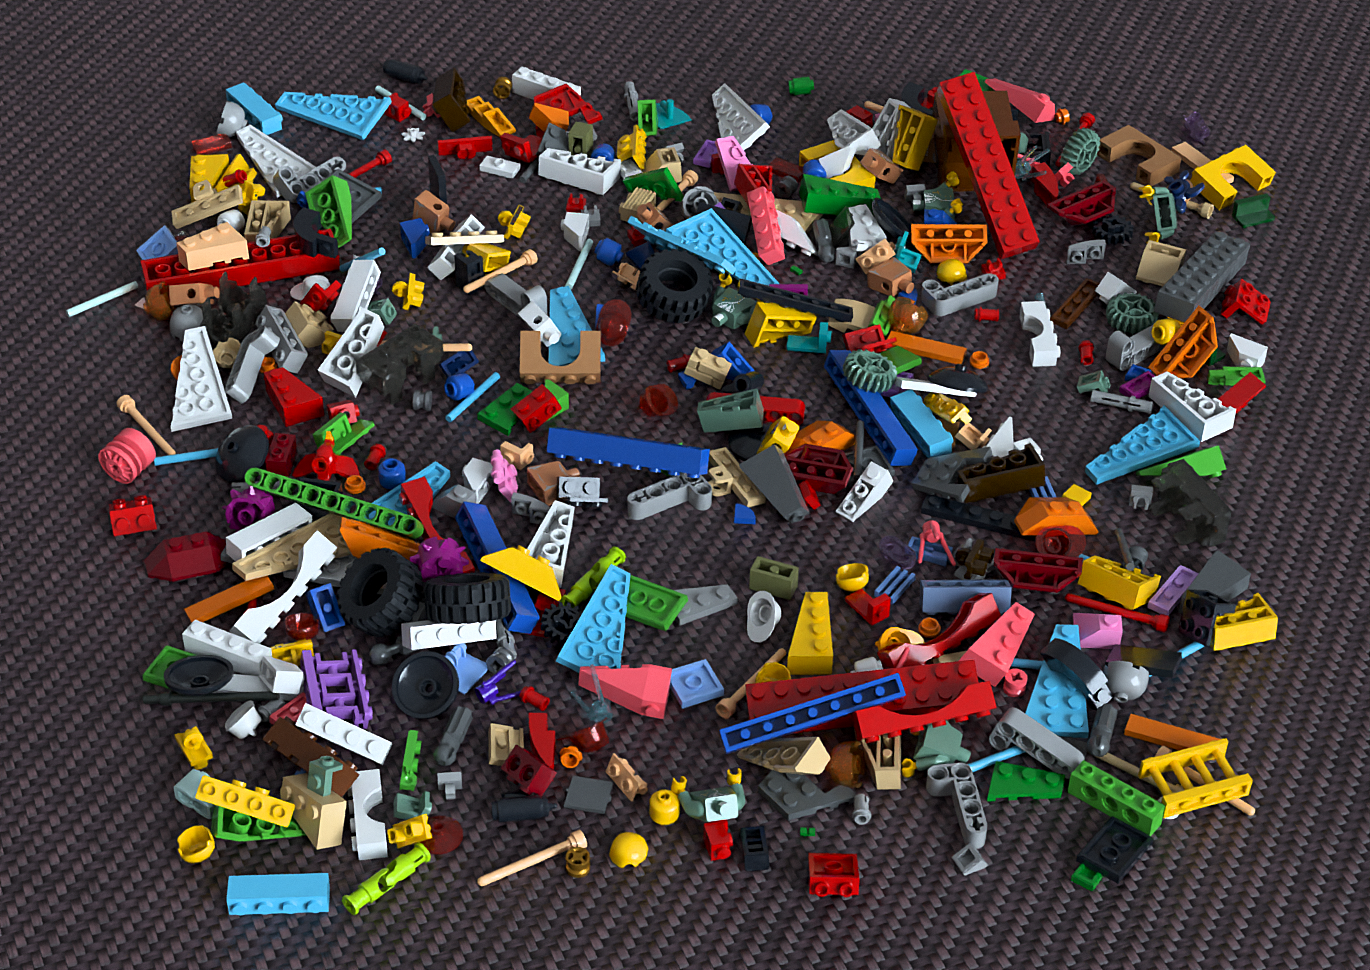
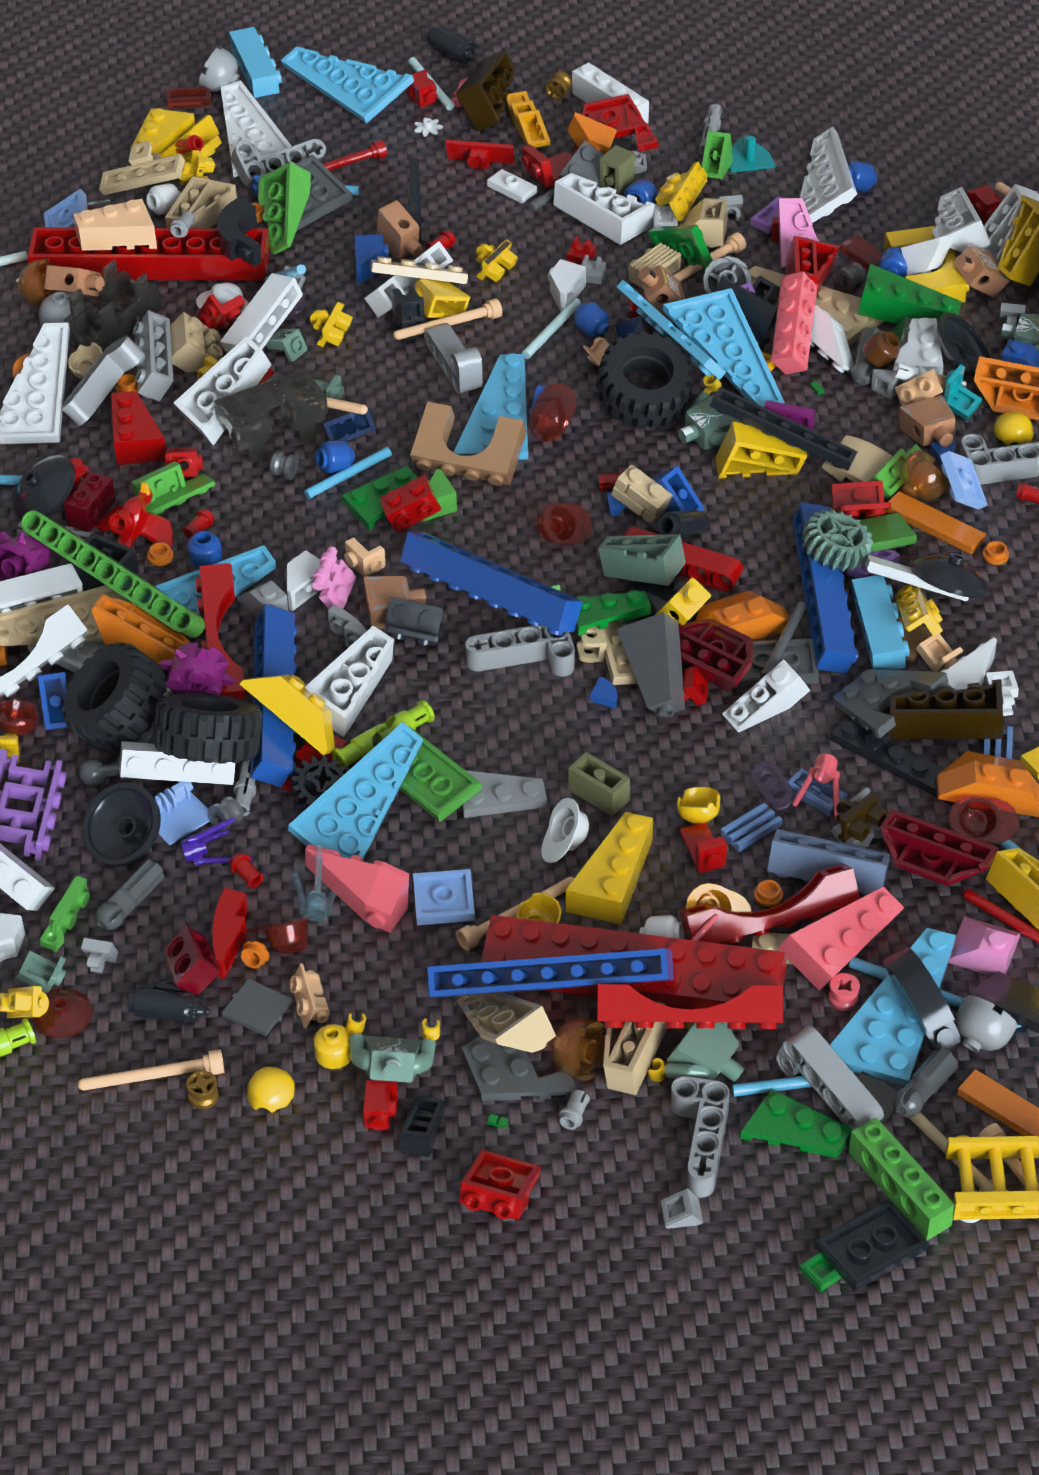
camera: 20 degrees right, 5 degrees up
(465, 213) = (446, 238): none -> red pin
(502, 741) = (184, 911): tan plate -> none
(549, 332) = (465, 404): white torso -> none
(726, 451) = (611, 607): none -> green wing
(800, 86) = (931, 146): green brick -> none
(810, 344) = (789, 488): teal bracket -> none
(837, 232) = (881, 349): none -> reddish brown head
(941, 318) = (963, 479): none -> light blue plate

